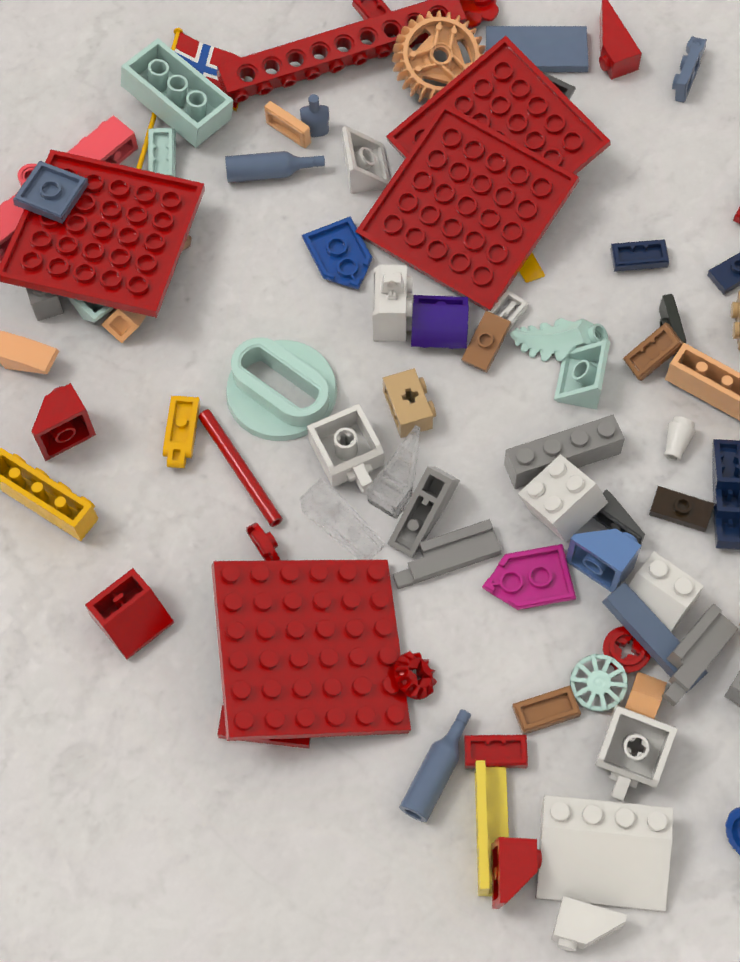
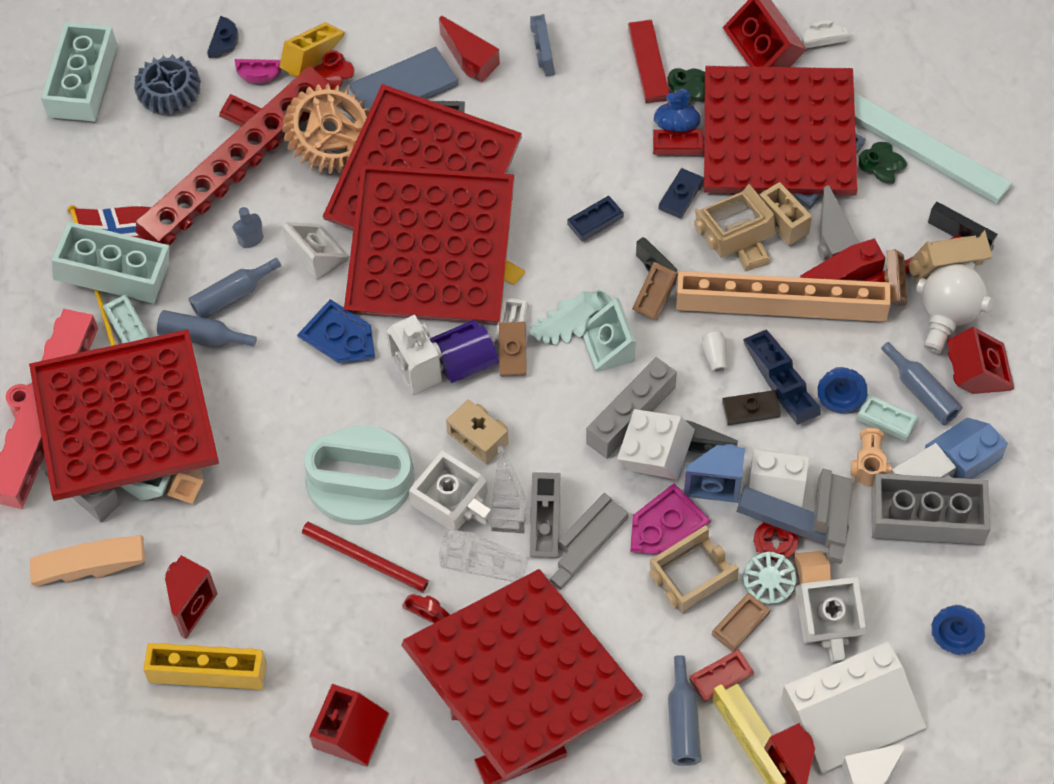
camera: 30 degrees left, 5 degrees down
(50, 192) = (55, 400): sand blue tile -> none
(181, 430) = (294, 551): yellow hinge -> none
(220, 190) = (201, 329): none -> sand blue piece
(287, 124) = (226, 245): light nougat tile -> none
(408, 680) = (620, 649): red gear -> none
(528, 635) = (691, 570): none -> tan window

